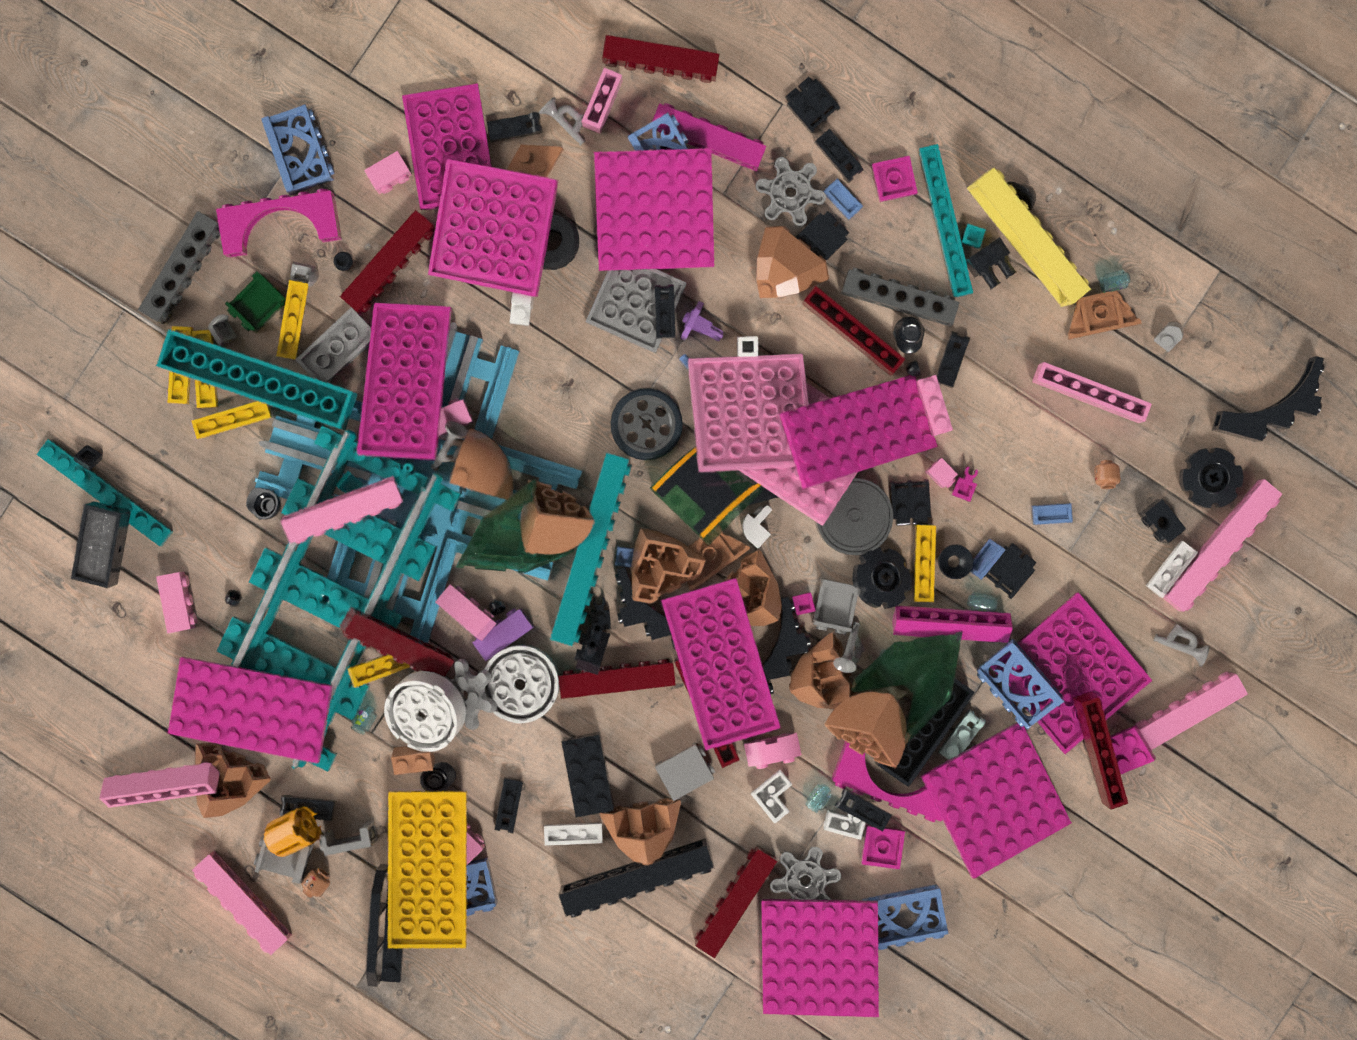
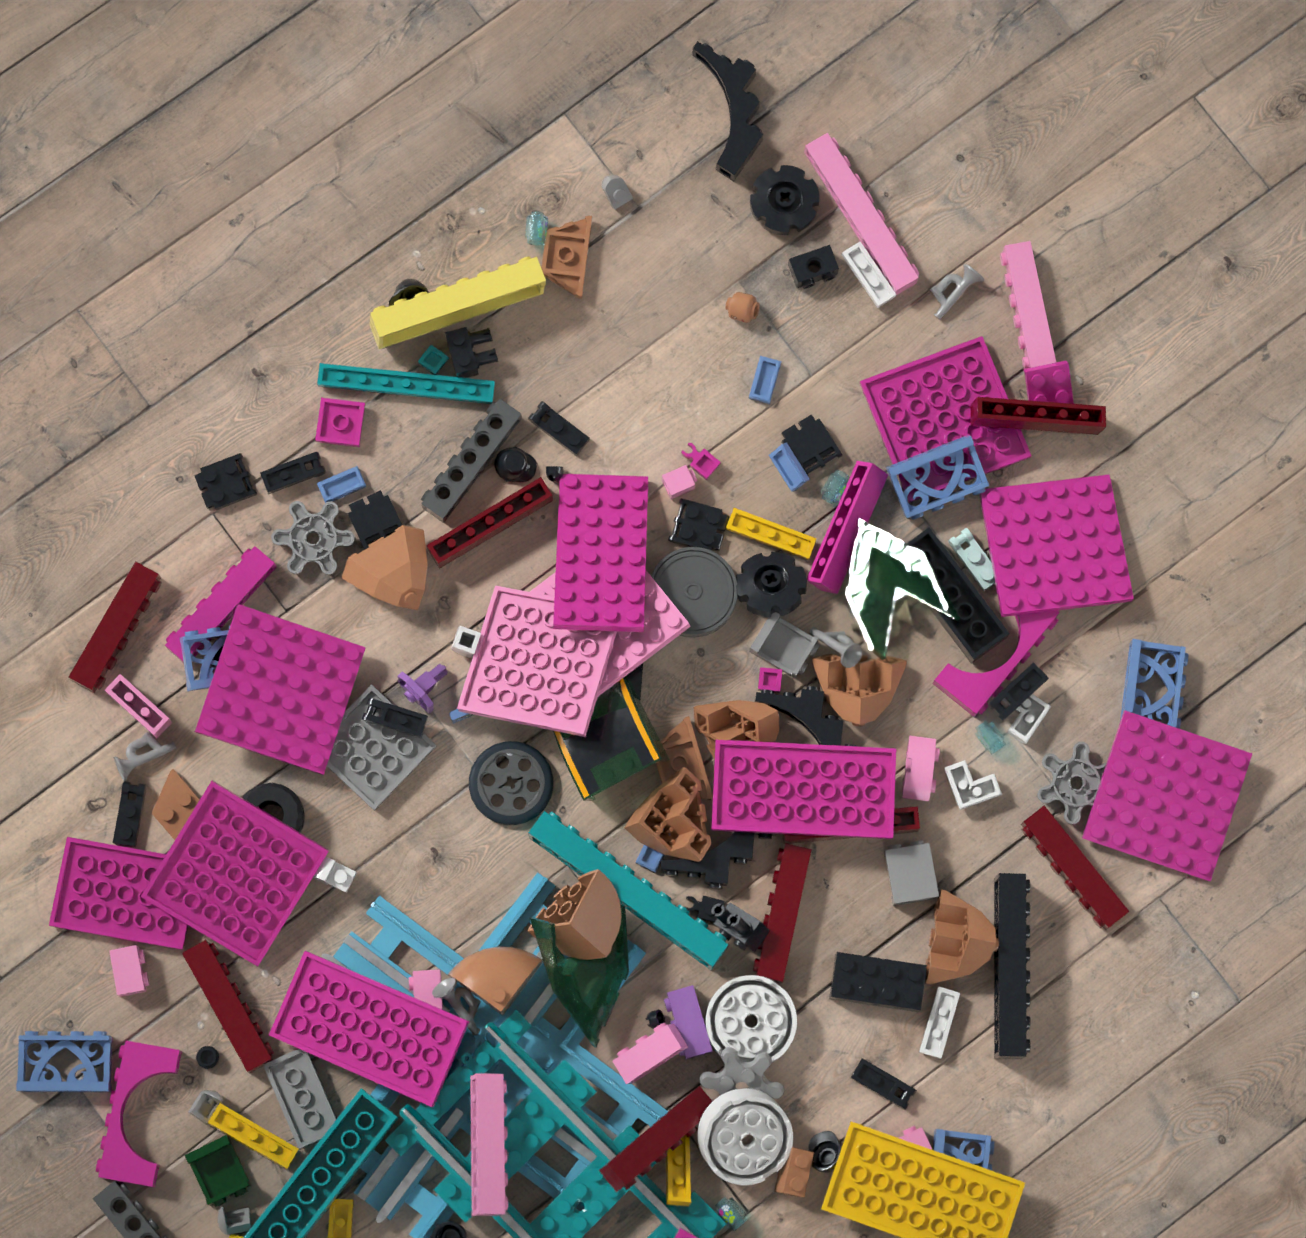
camera: 75 degrees left, 10 degrees down
(349, 483) = (460, 1132): teal plate -> none
(753, 530) = (667, 706): white brick -> none
(871, 725) = (927, 650): nougat brick -> none
(883, 848) = (1068, 686): dark pink plate -> none
(934, 405) = (602, 464): bright pink brick -> none
(965, 561) = (783, 489): black piece -> none
(1091, 392) = (647, 293): bright pink brick -> none

